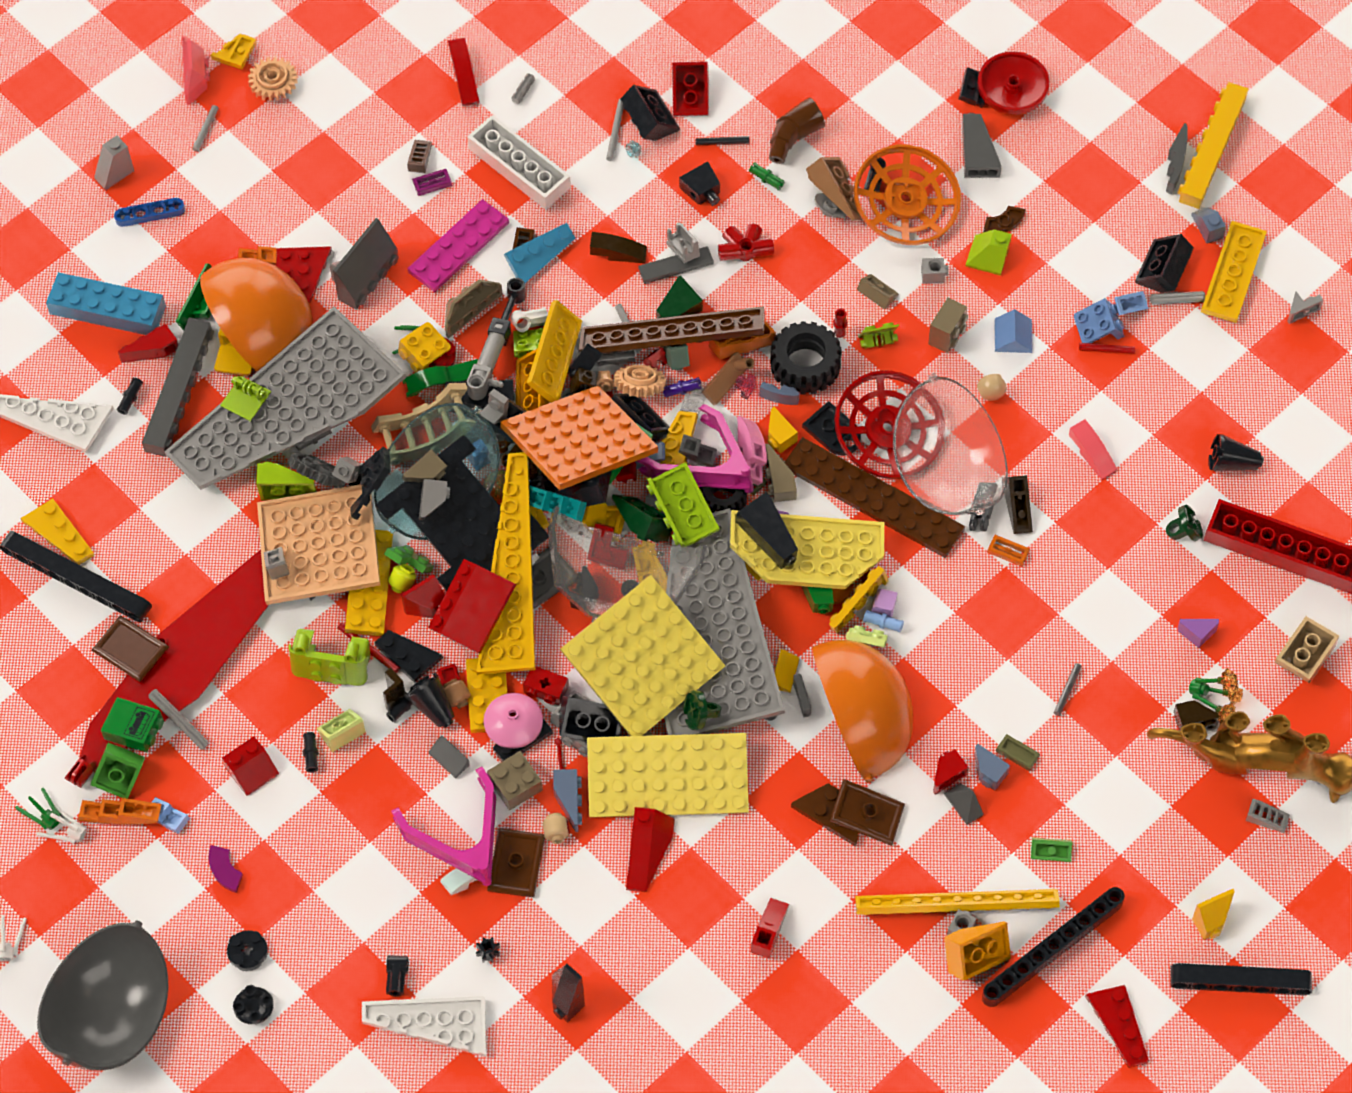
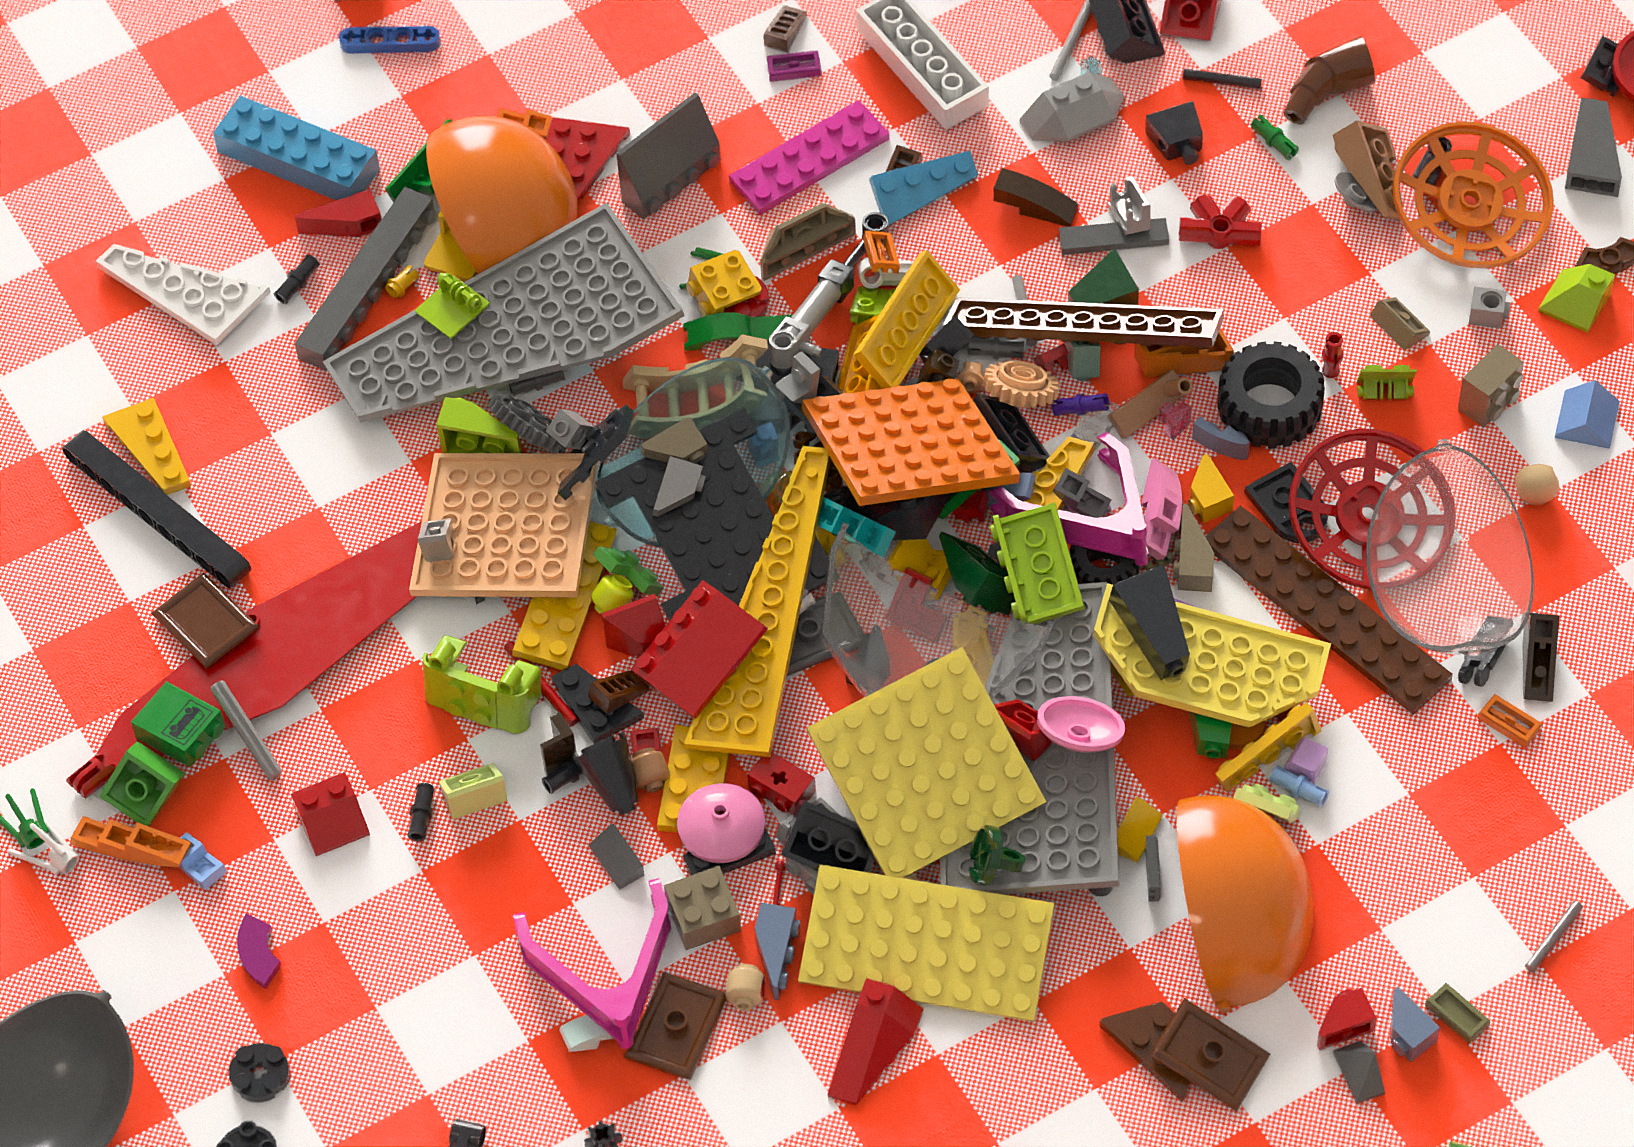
camera: 15 degrees right, 5 degrees down
(200, 388) = (398, 285): none -> yellow pin
(418, 653) = (609, 702): none -> reddish brown slope
(522, 306) = (871, 238): none -> orange tile
(628, 180) = (1073, 108): none -> light grey wedge
(702, 617) = (1023, 727): none -> red slope
(737, 609) = (1080, 724): none -> bright pink dish

